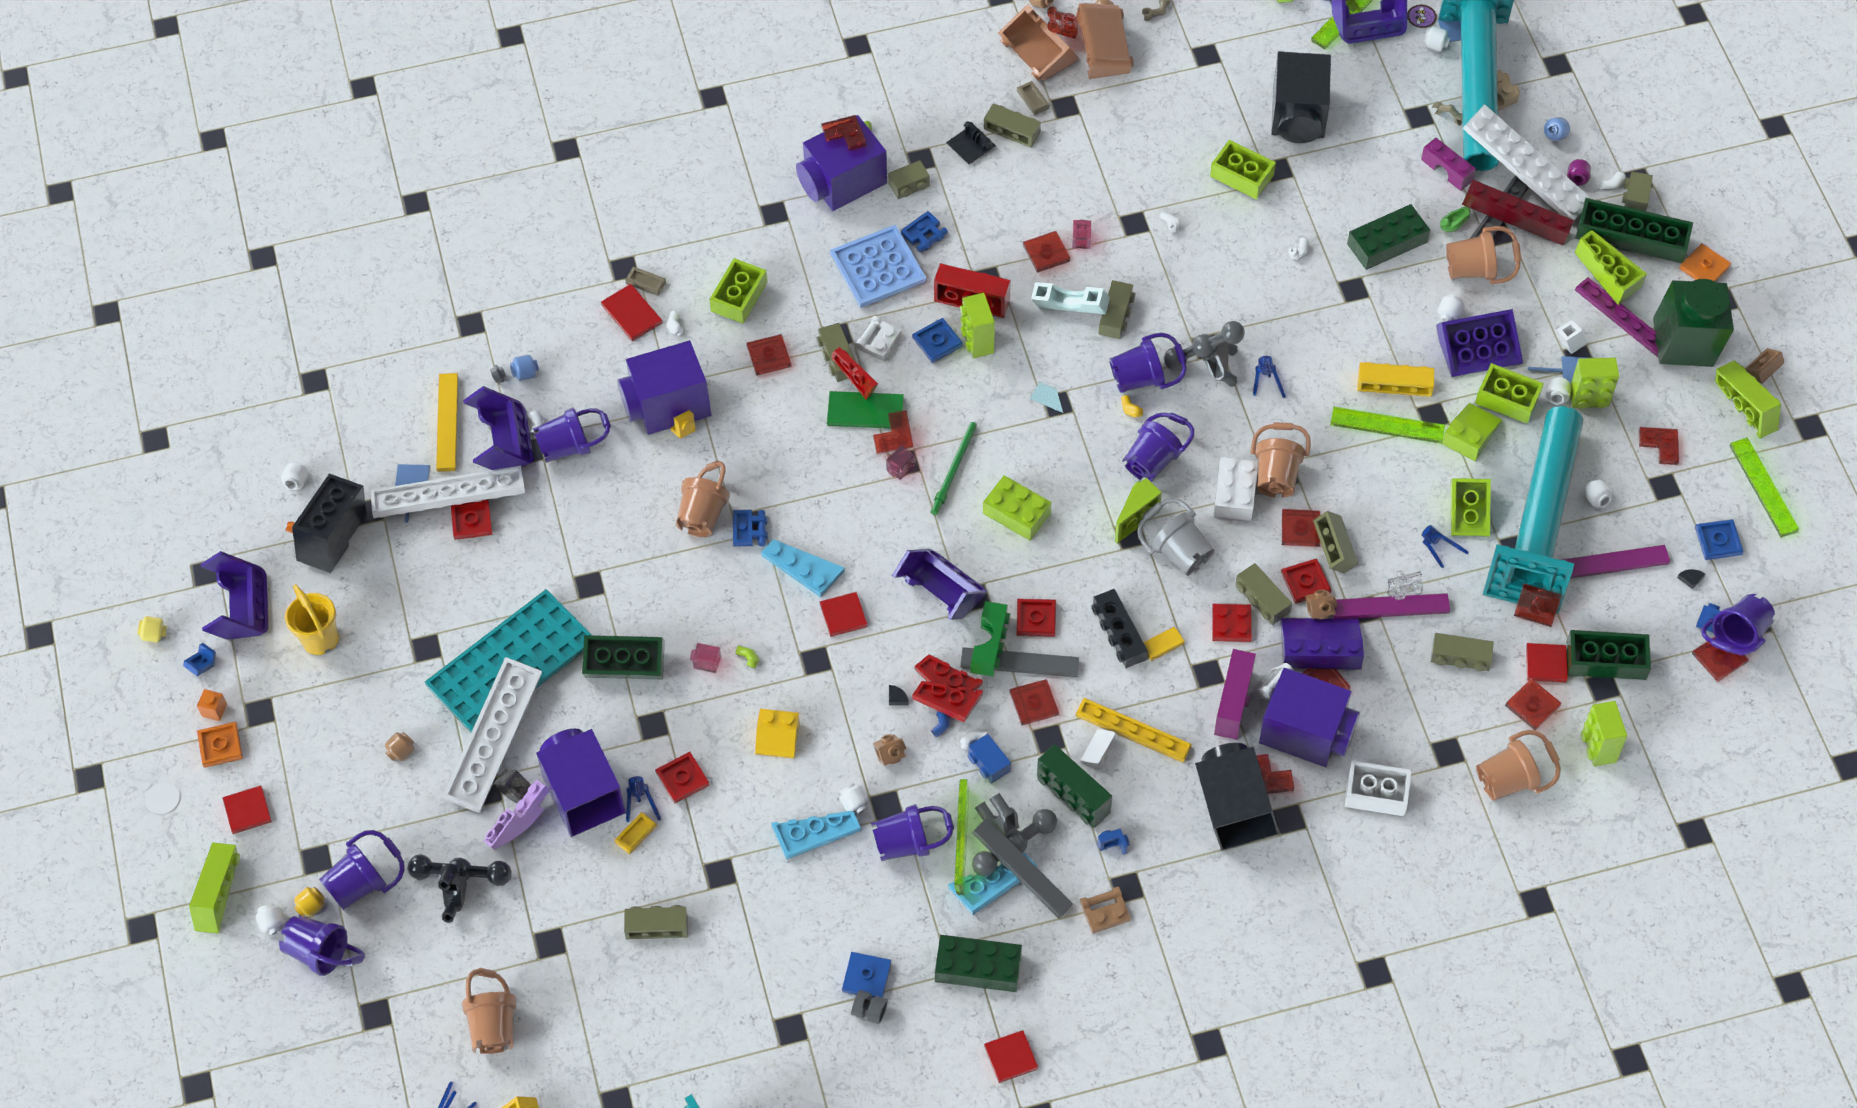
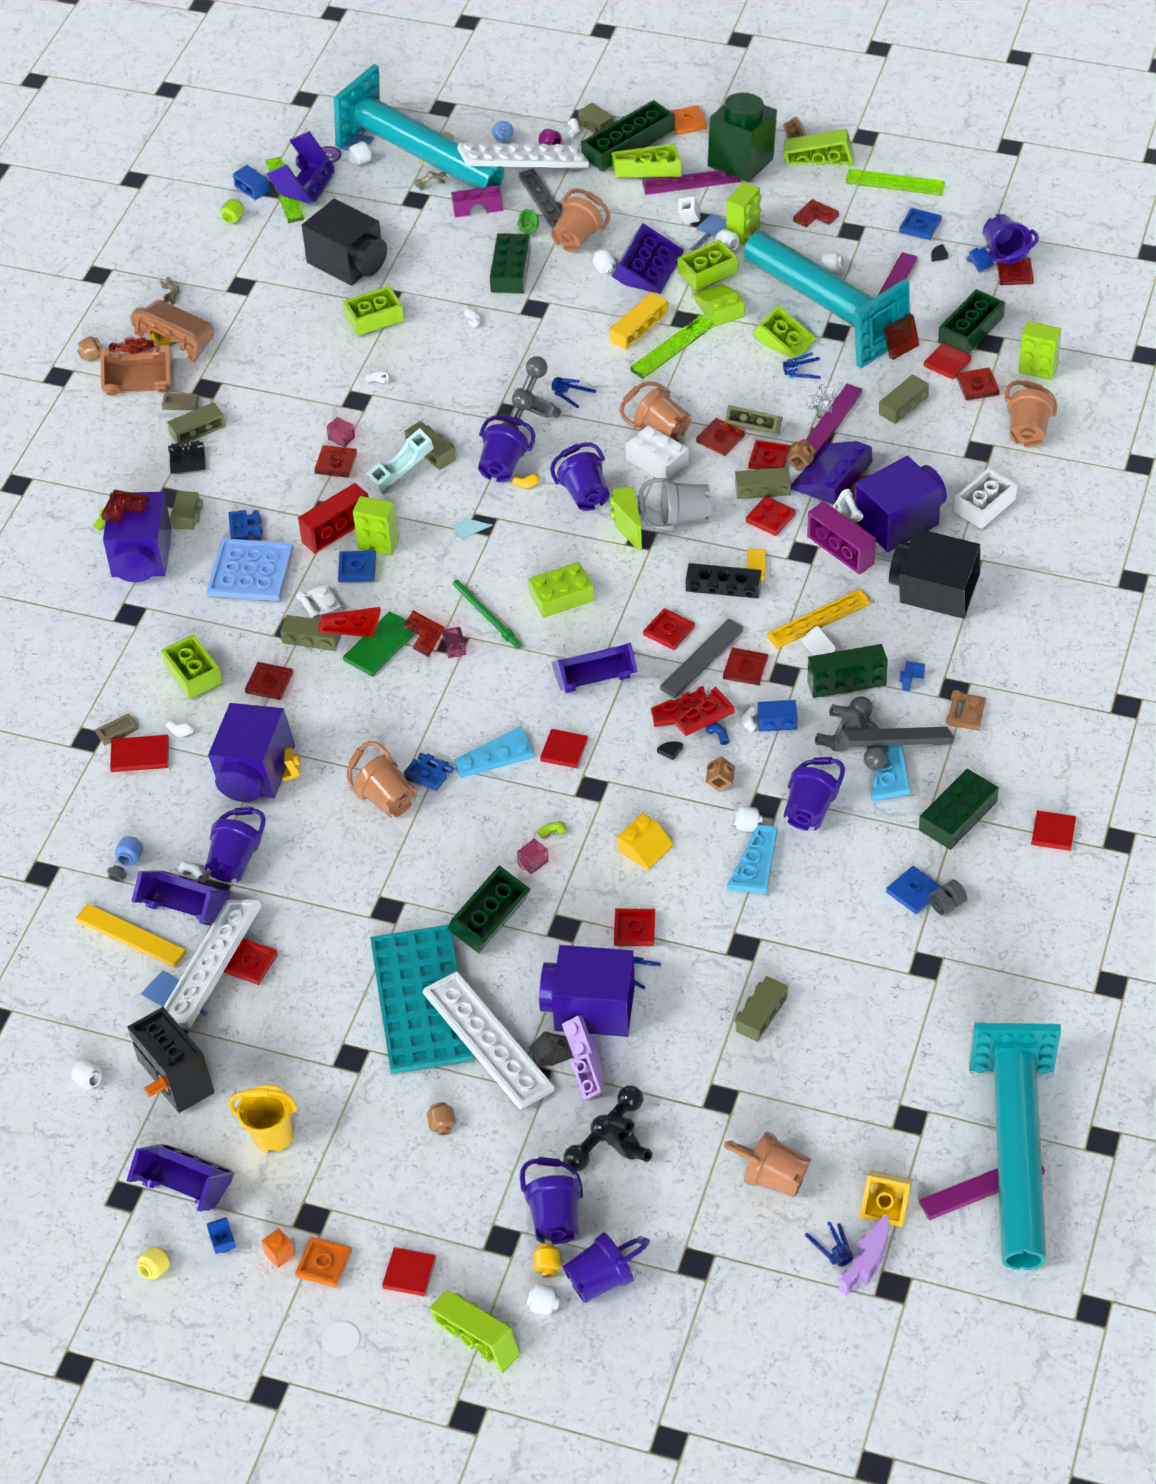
camera: 55 degrees left, 10 degrees down
(635, 833) = (661, 986): yellow tile -> none
(961, 841) = (852, 769): clear neon green tile -> none
(985, 656) = (654, 651): green arch -> none
(1518, 212) = (556, 184): dark red brick -> none

